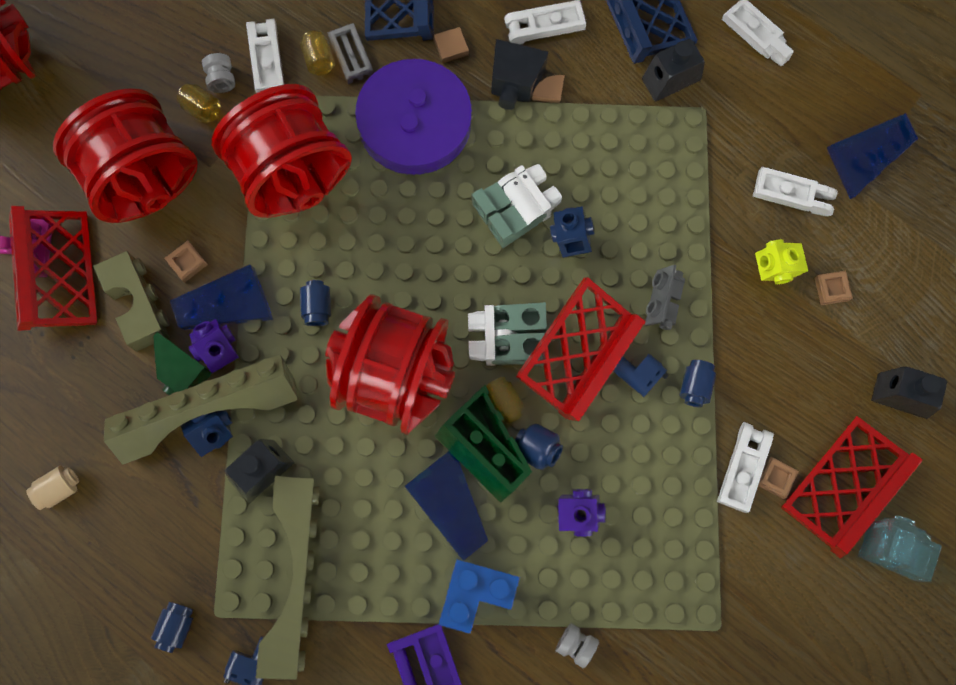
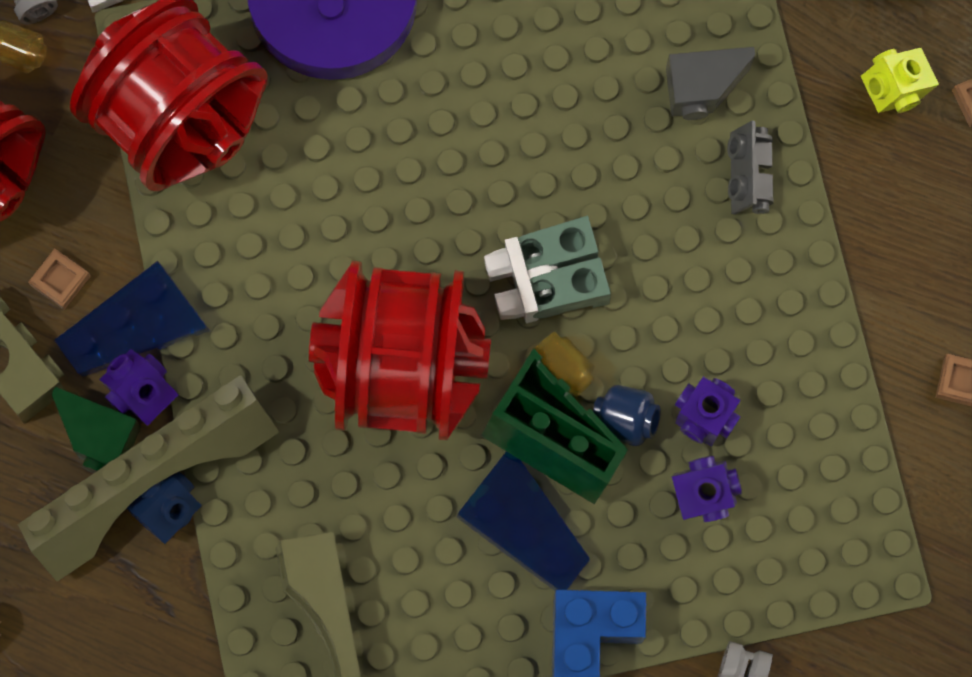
camera: 15 degrees left, 0 degrees up
(257, 468) = (249, 541): black torso -> none
(315, 303) = (266, 293): dark blue brick -> none
(516, 203) = (510, 86): hips -> none
(572, 231) = (599, 107): dark blue brick -> none
(584, 462) = (698, 423): none -> dark purple brick
(595, 370) = (684, 285): red fence -> none
(644, 376) = (744, 288): dark blue piece -> none
(648, 229) = (704, 79): none -> dark grey slope
(698, 383) = (823, 276): dark blue brick -> none
(745, 468) = (915, 378): white plate -> none

